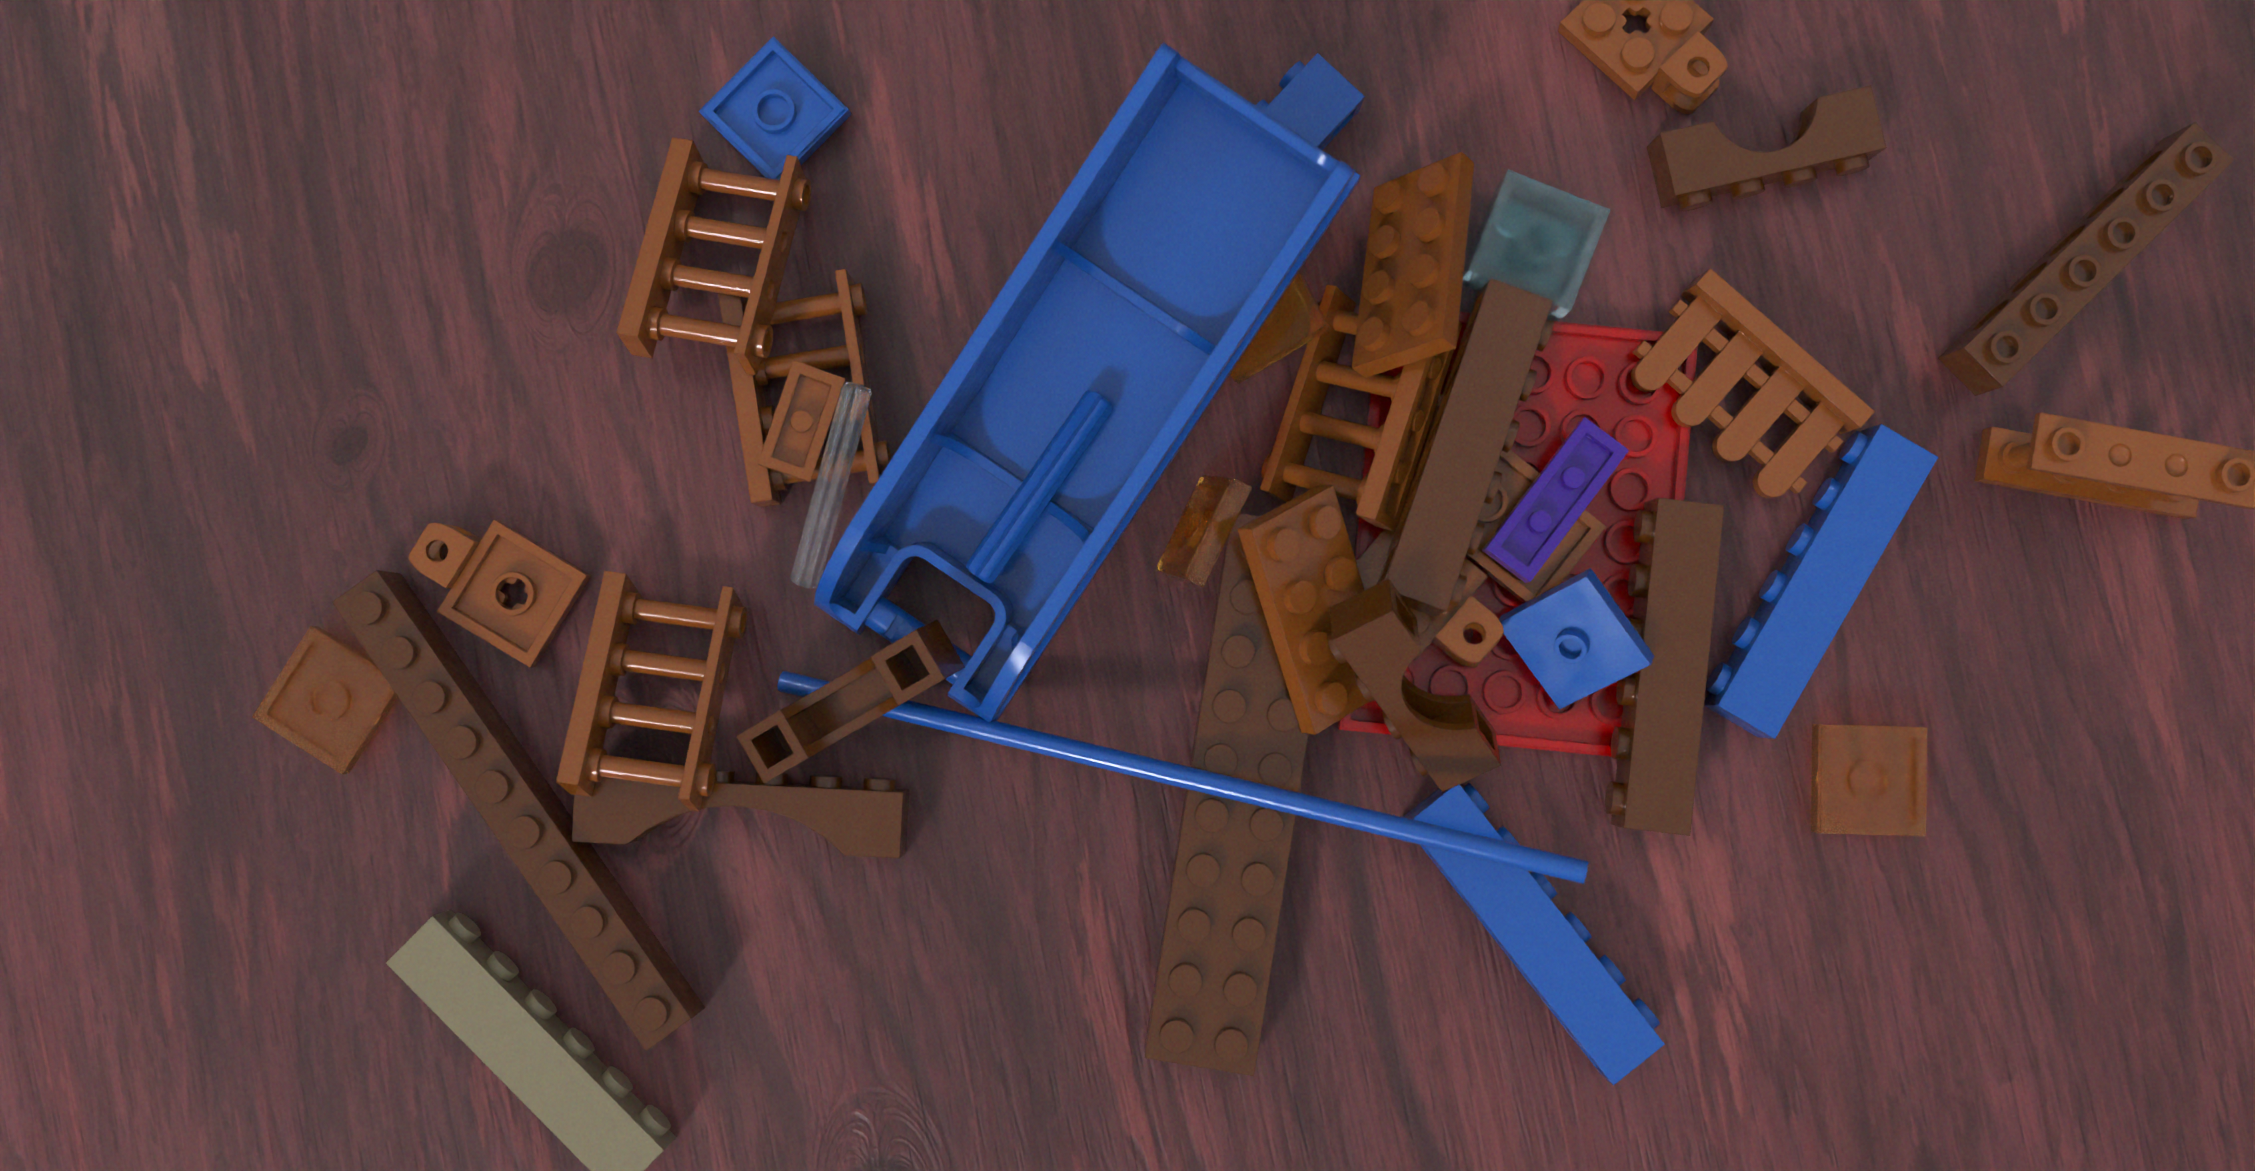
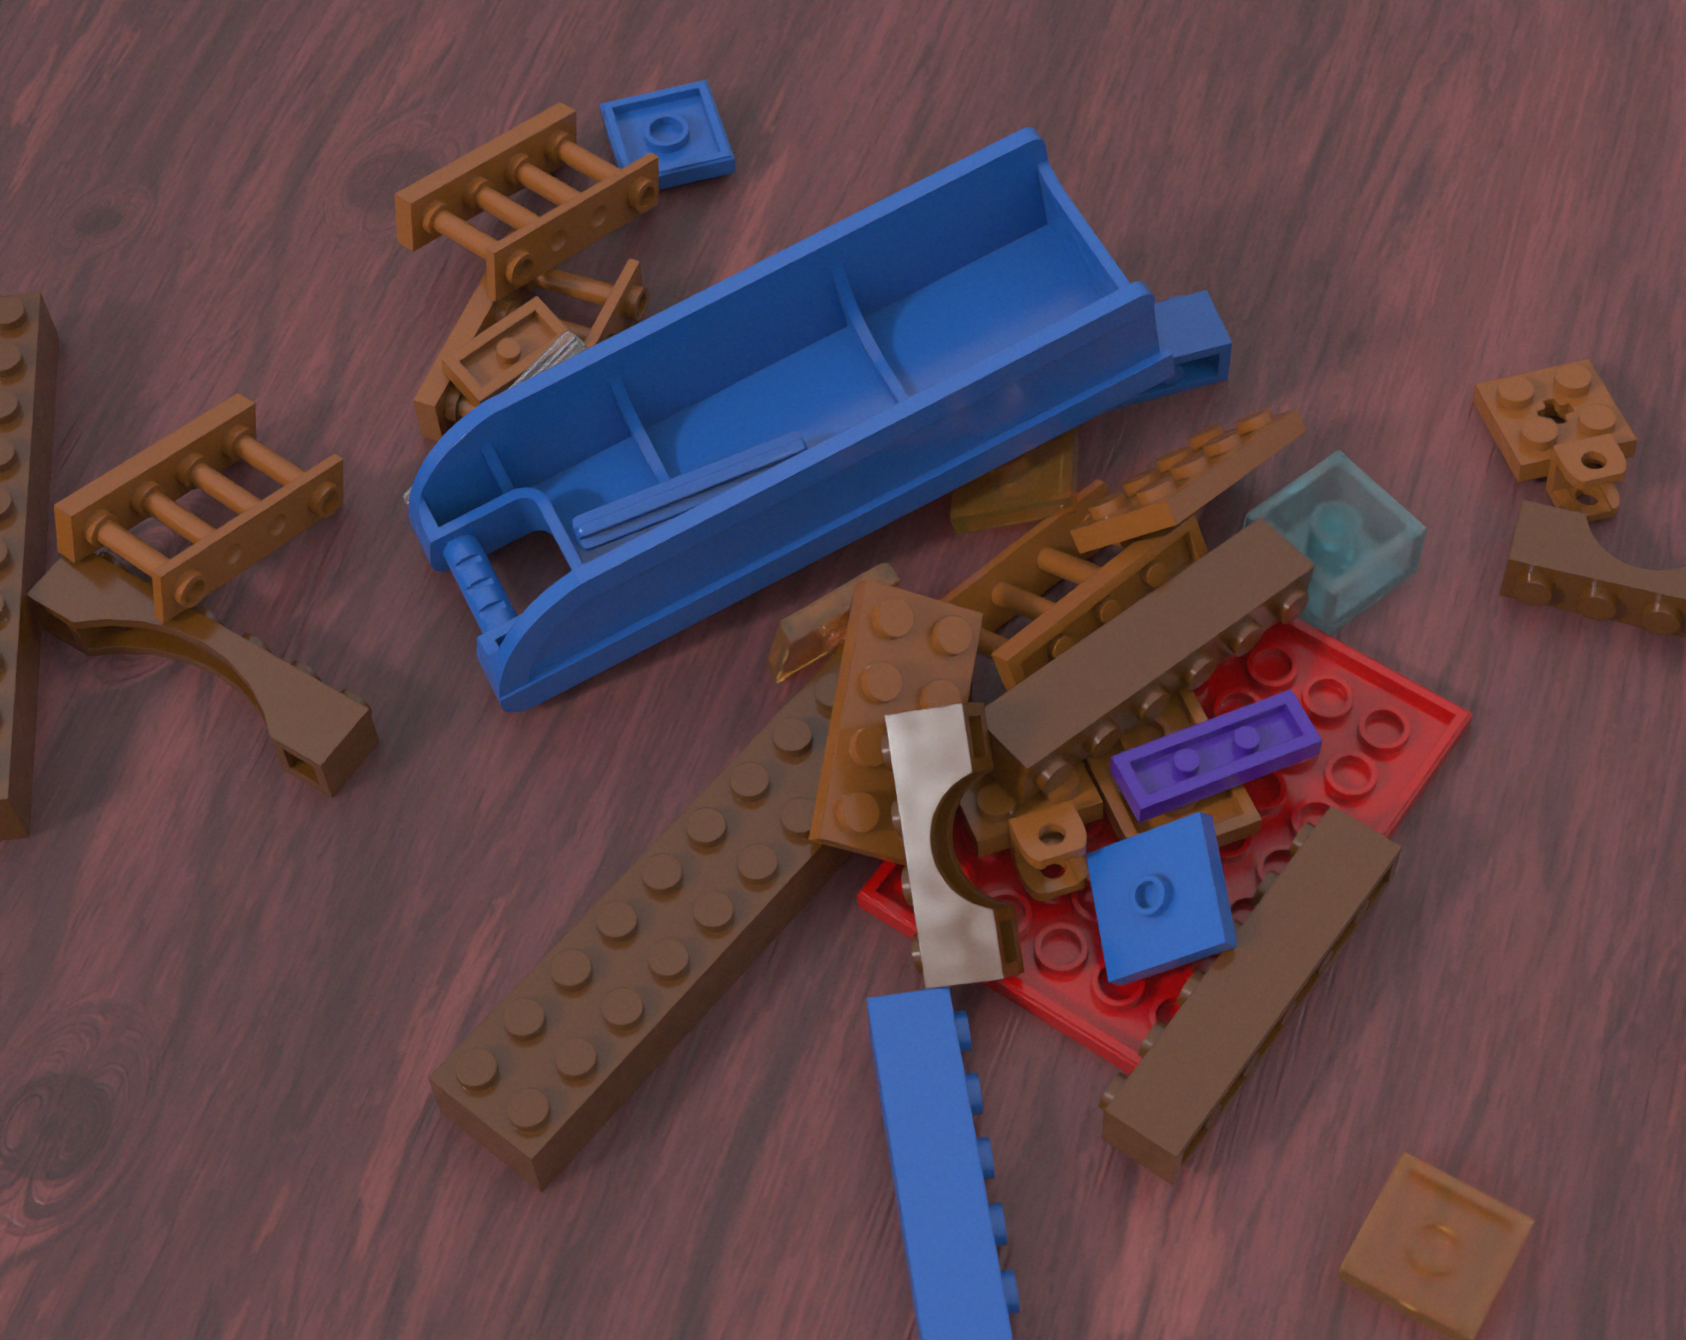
camera: 25 degrees right, 30 degrees down
(476, 575) = (130, 352): dark orange plate -> none
(851, 701) = (313, 605): reddish brown arch -> none
(1222, 786) = (684, 834): blue piece -> none
(1751, 340) = (1526, 735): dark orange fence -> none
(1818, 580) = (1479, 1006): blue brick -> none

